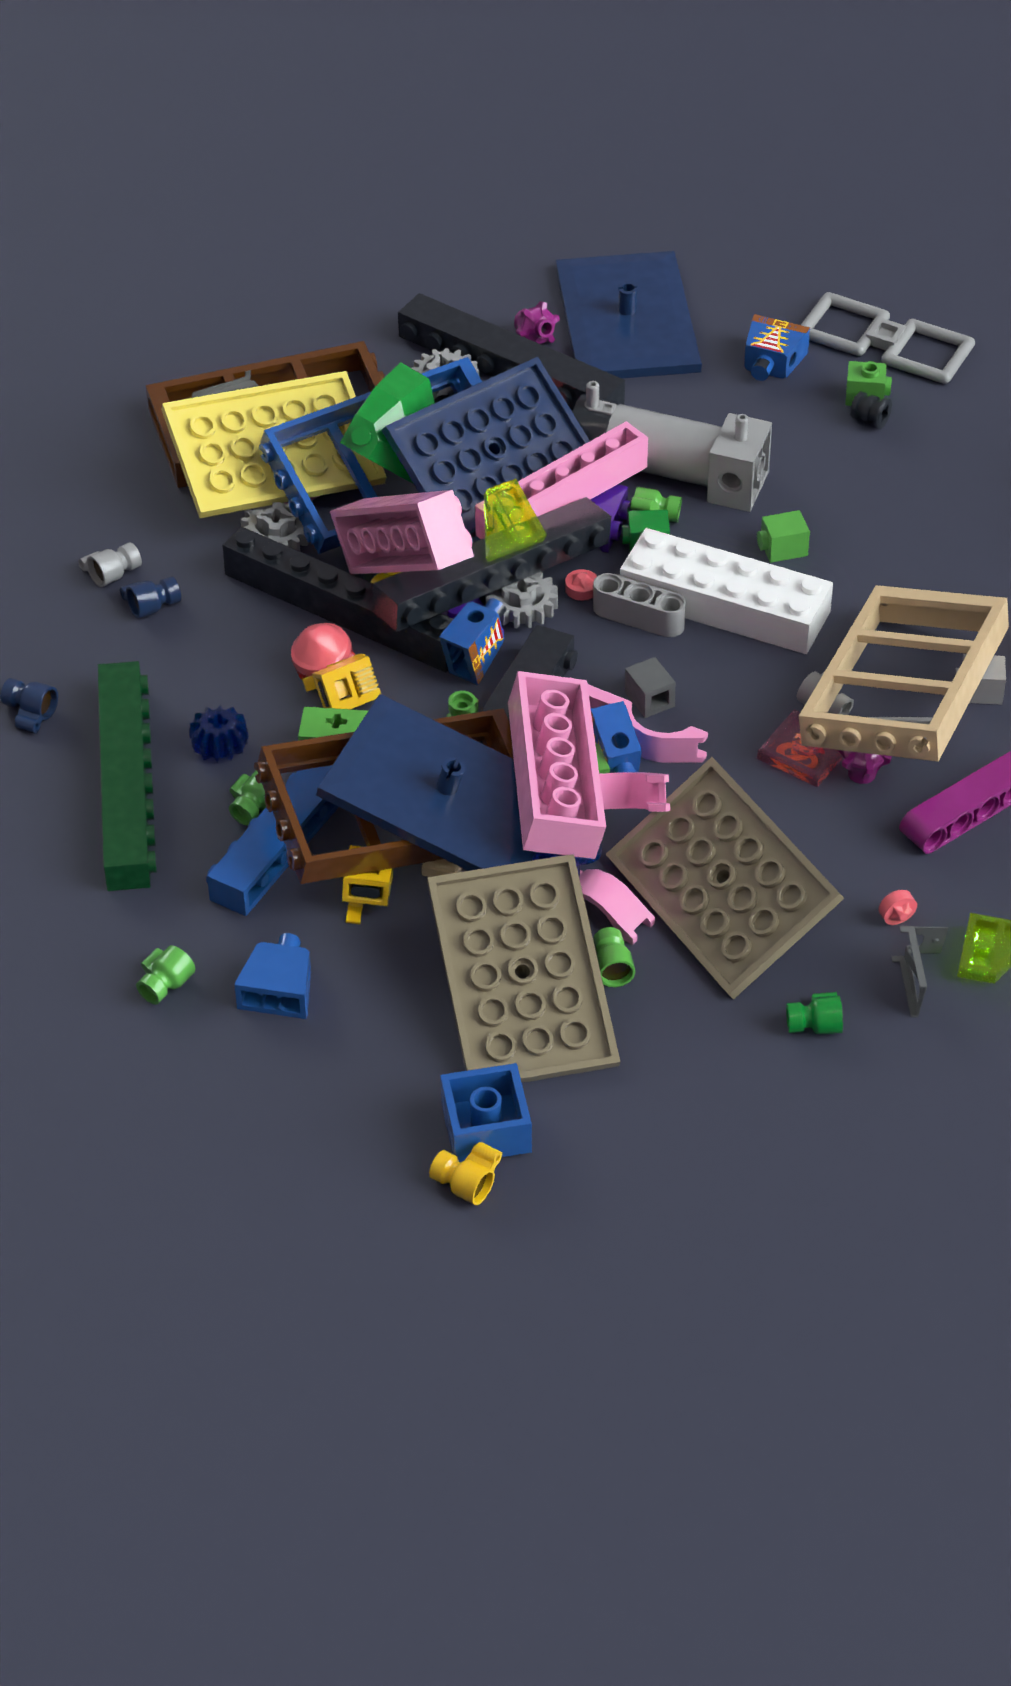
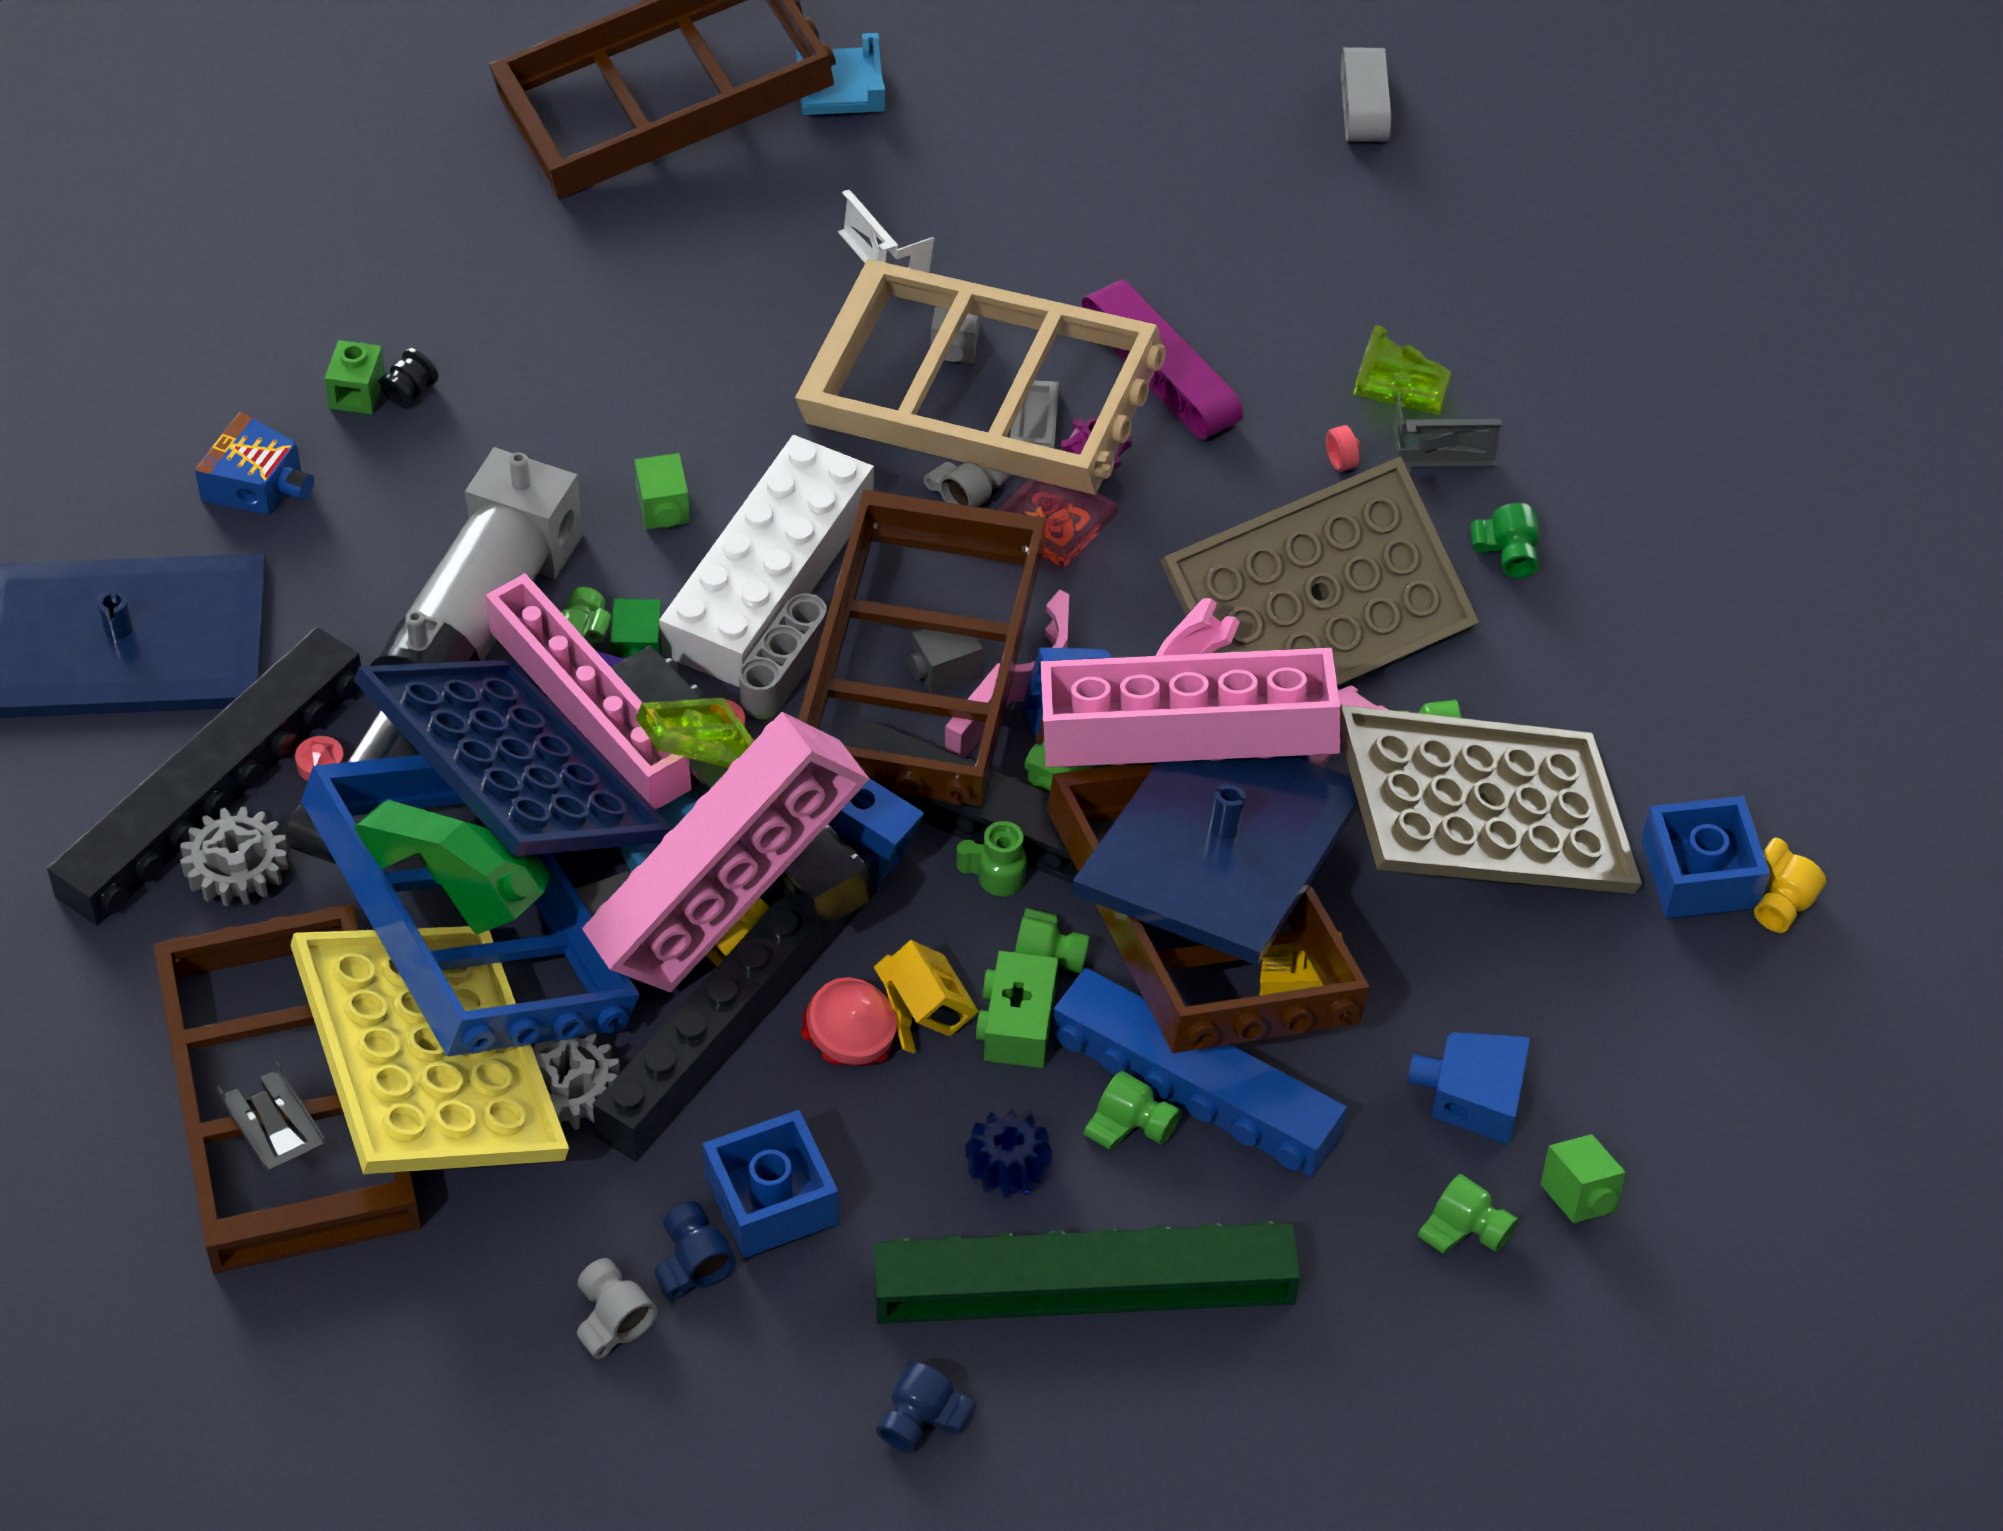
camera: 90 degrees left, 5 degrees up
(187, 1029) = (1582, 1178): none -> bright green brick
(189, 617) = (771, 1183): none -> blue brick
(536, 323) = (141, 734): magenta rock -> none
(639, 607) = (943, 529): none -> reddish brown window
(889, 337) = (239, 353): light grey bar -> none

